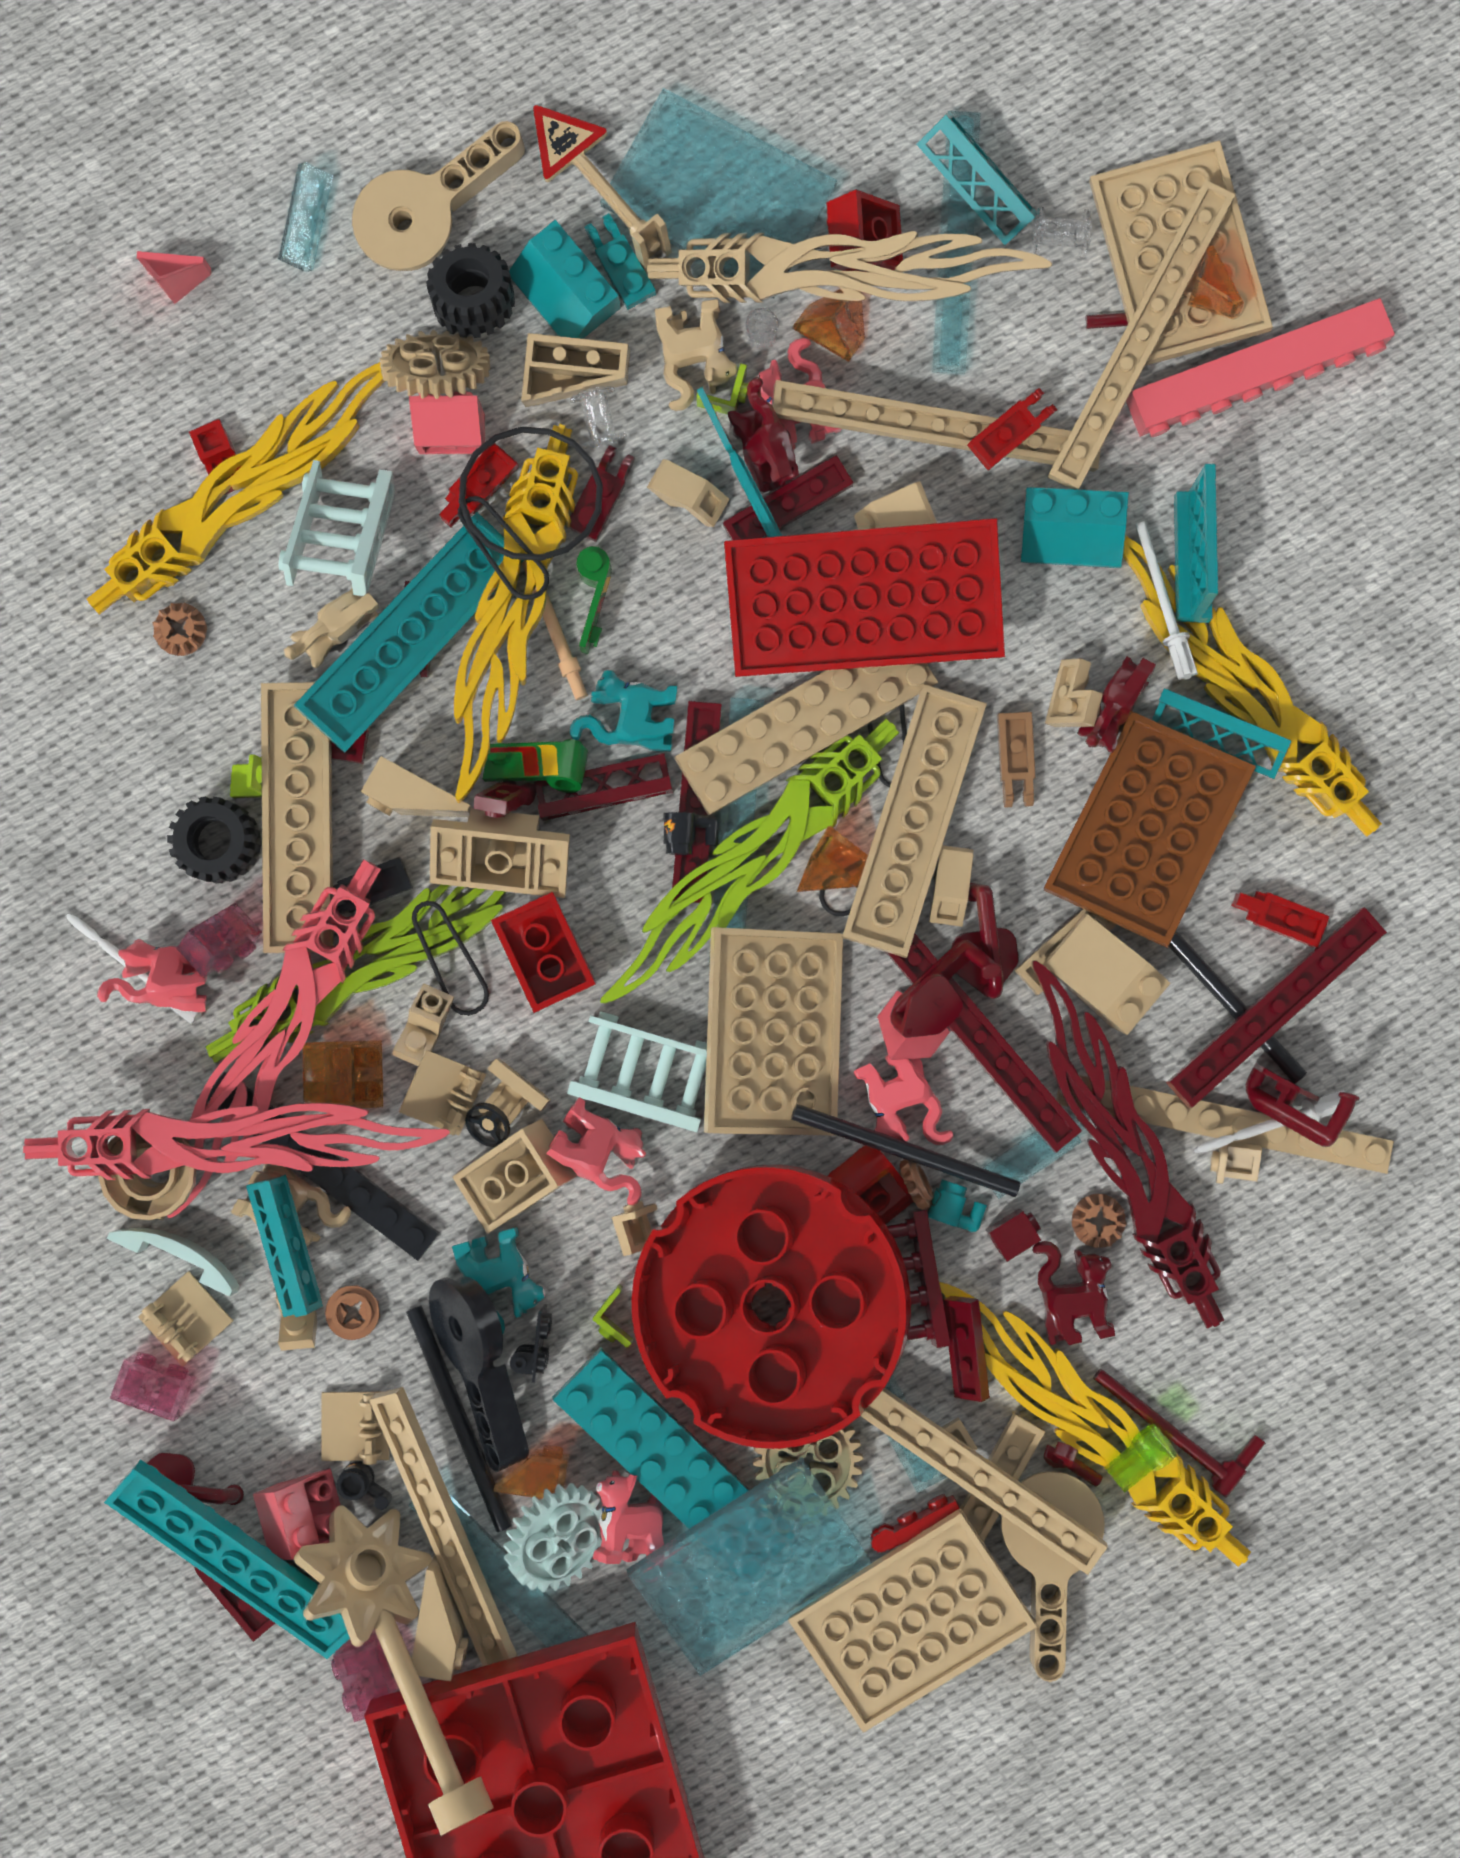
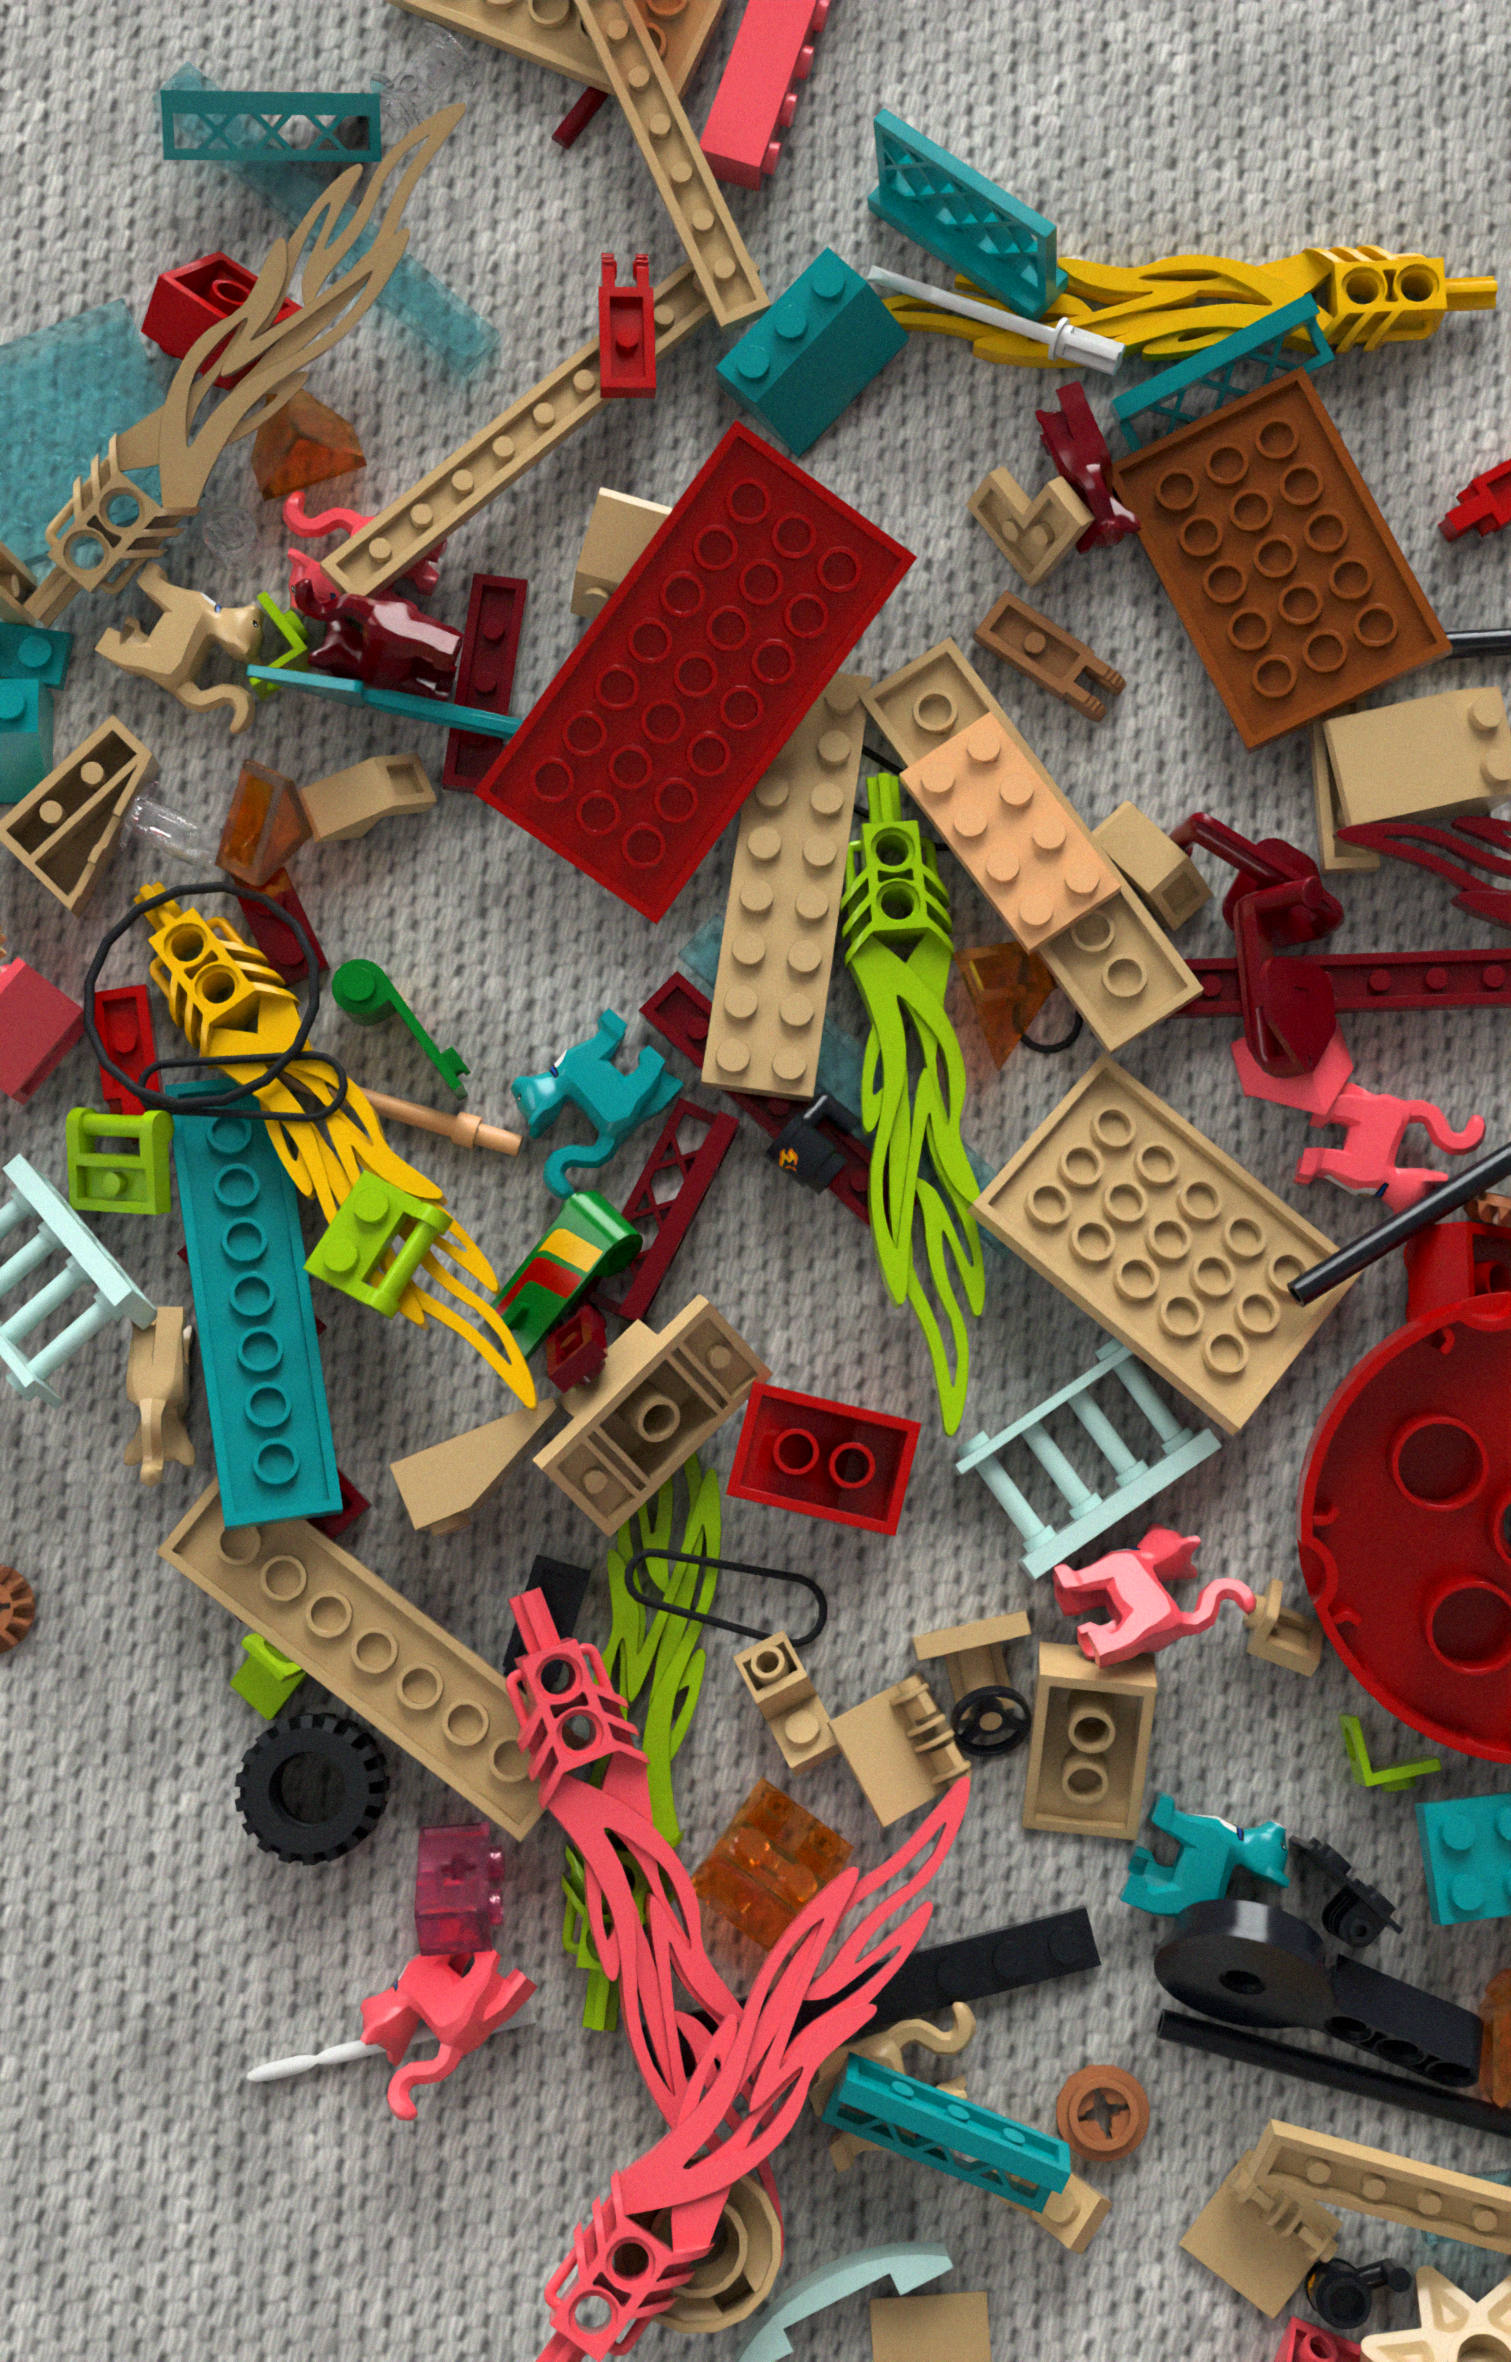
camera: 55 degrees left, 5 degrees down
(415, 524) = (119, 1179): none -> lime plate
(472, 659) = (363, 1235): none -> lime plate
(631, 456) = (262, 824): none -> clear orange slope
(910, 806) = (1010, 833): none -> light nougat plate

